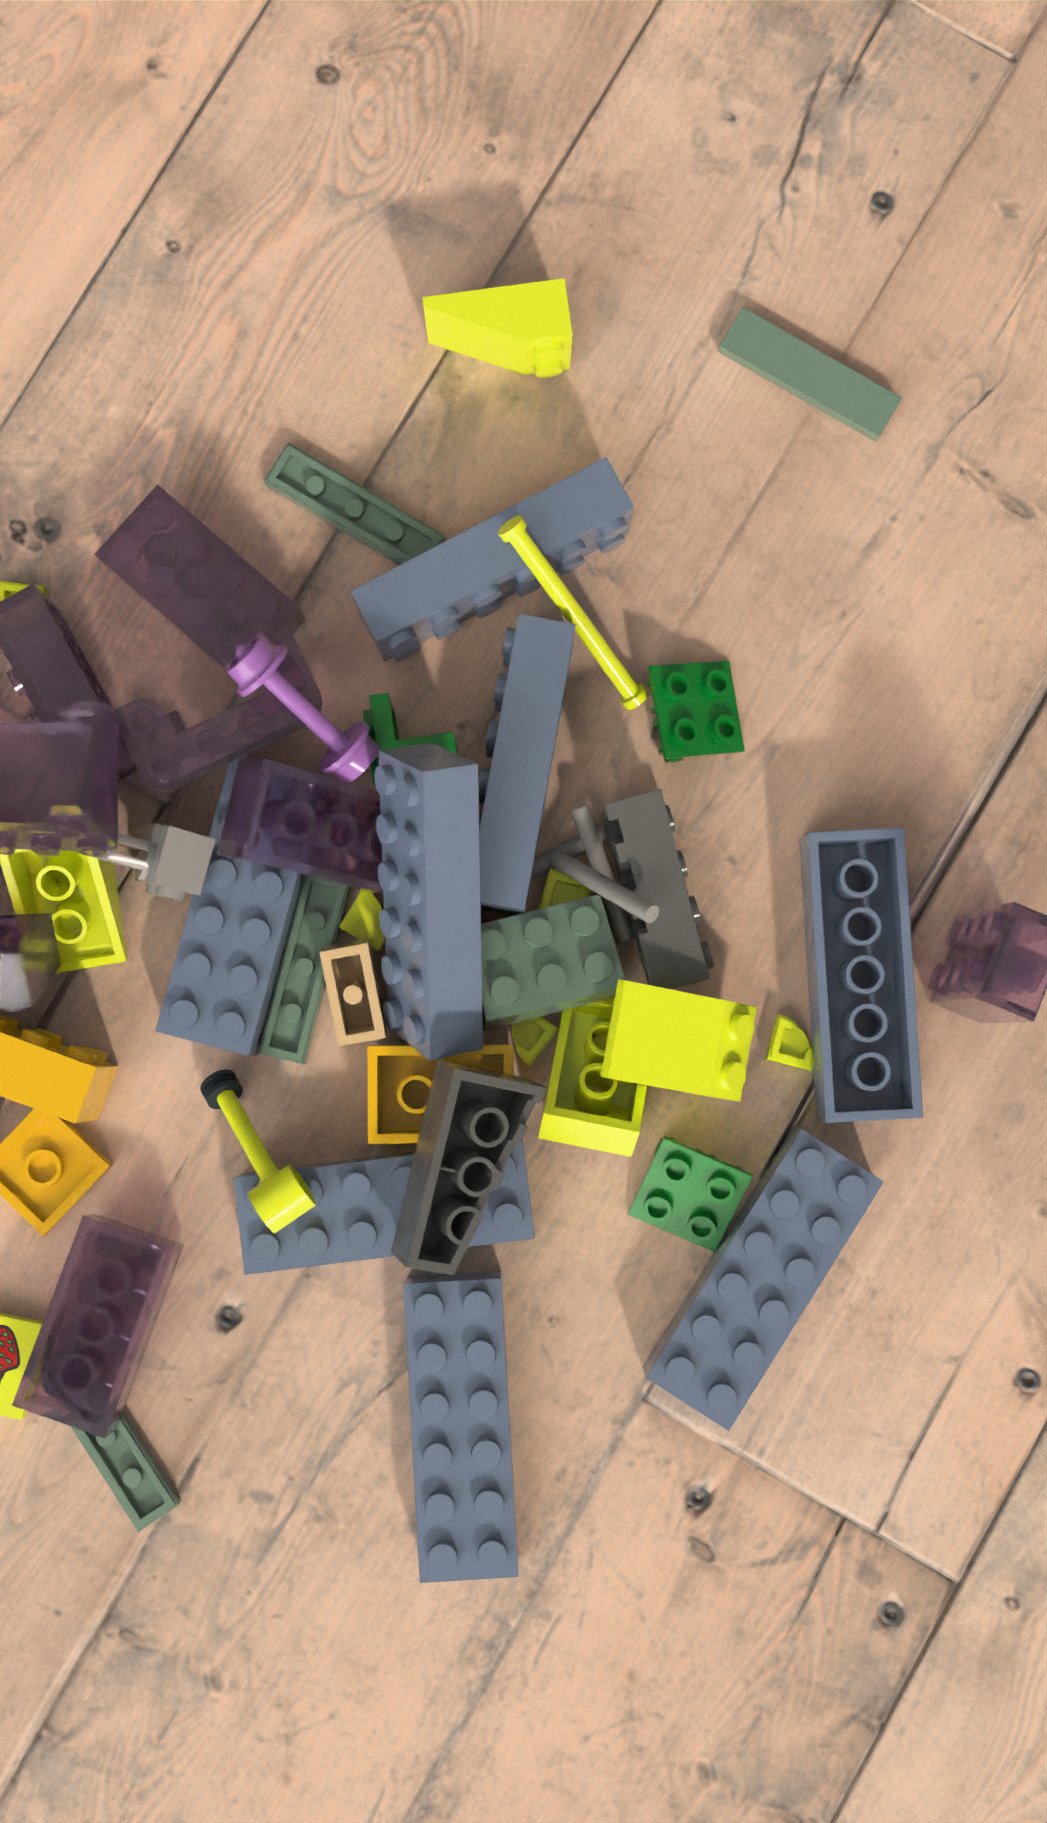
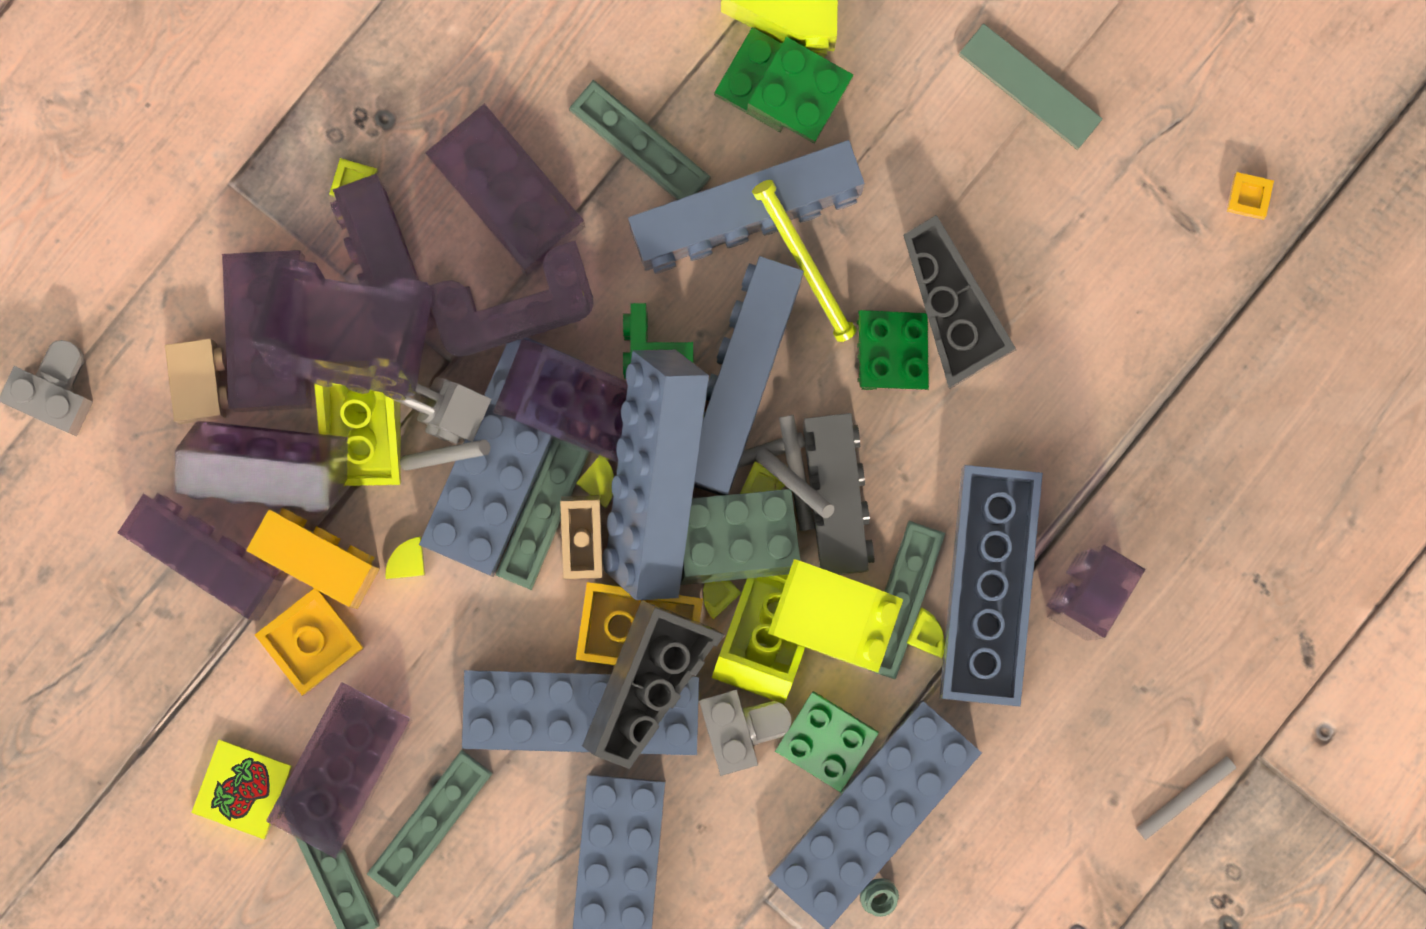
camera: 10 degrees right, 0 degrees up
(147, 1052) = (406, 560): none -> neon yellow tile
(172, 916) = (445, 455): none -> light grey bar
(222, 1368) = (429, 823): none -> sand green tile
(257, 665) = (607, 346): medium lavender piece -> none
(280, 1193) = (501, 686): neon yellow piece -> none
(517, 411) = (783, 85): none -> green bracket
(579, 1197) = (738, 729): none -> light grey brick
(758, 984) = (909, 581): none -> sand green tile
(766, 645) = (958, 312): none -> dark grey wedge
(785, 1376) = (884, 904): none -> sand green plate

